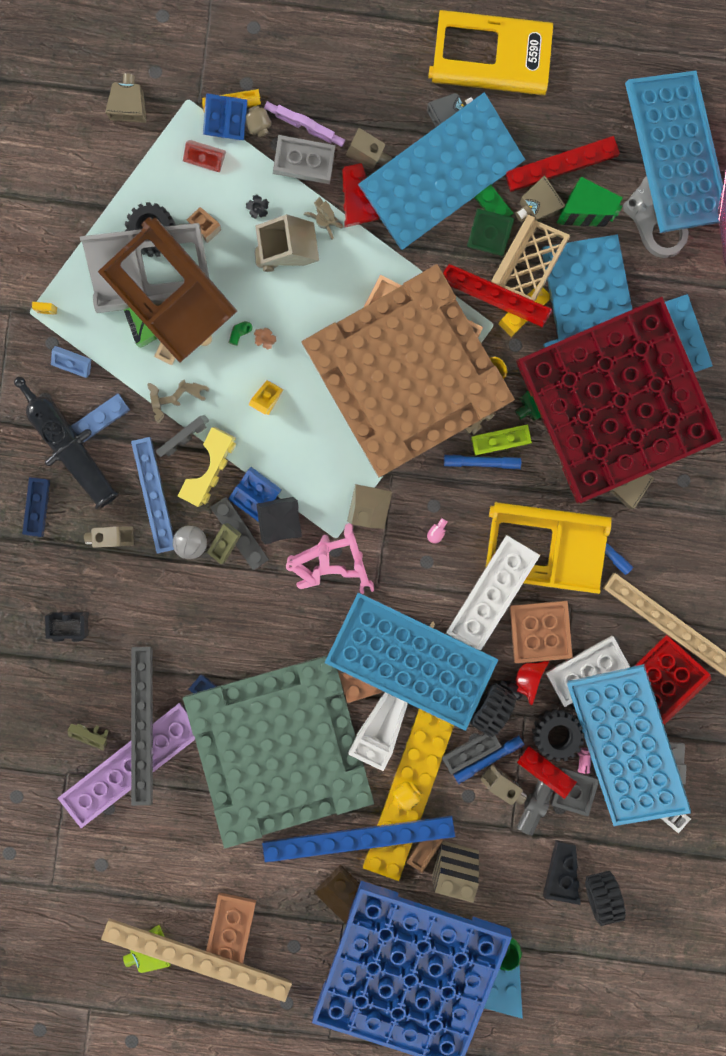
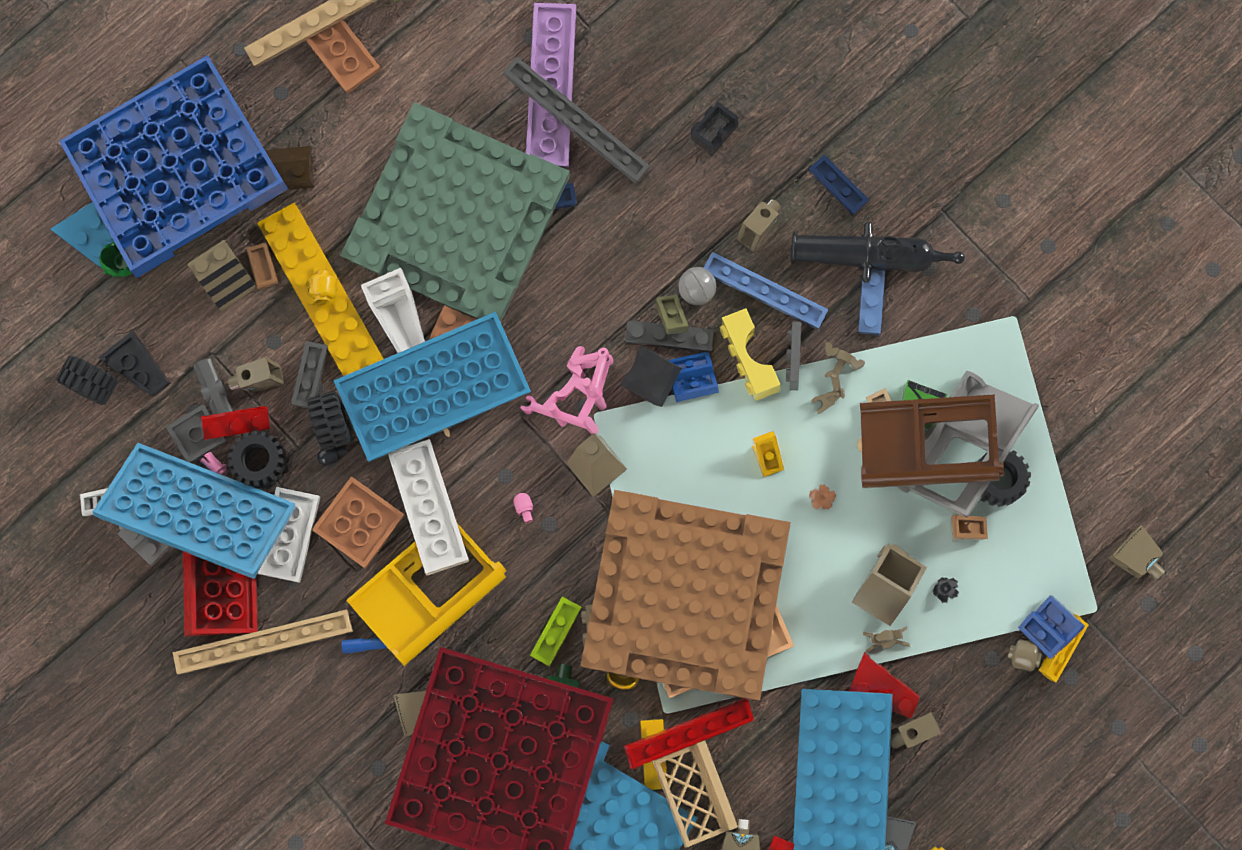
camera: 135 degrees right, 10 degrees down
(44, 308) = (1006, 330): yellow tile -> none
(70, 361) = (941, 315): medium blue plate -> none
(93, 739) = (598, 73): olive plate -> none
(204, 155) = (1032, 581): clear red slope -> none
(239, 330) = (848, 480): green arm -> none
(301, 120) = (989, 697): lavender piece -> none
(303, 159) = (956, 667): light grey plate -> none
(358, 839) = (321, 219): blue plate -> none
(490, 232) = (751, 781): dark green tile -> none
(492, 202) = (773, 807): green plate -> none
(505, 462) = (568, 580): blue piece -> none
(508, 748) = (284, 408): blue piece -> none
(529, 679) = (327, 476): red hat -> none

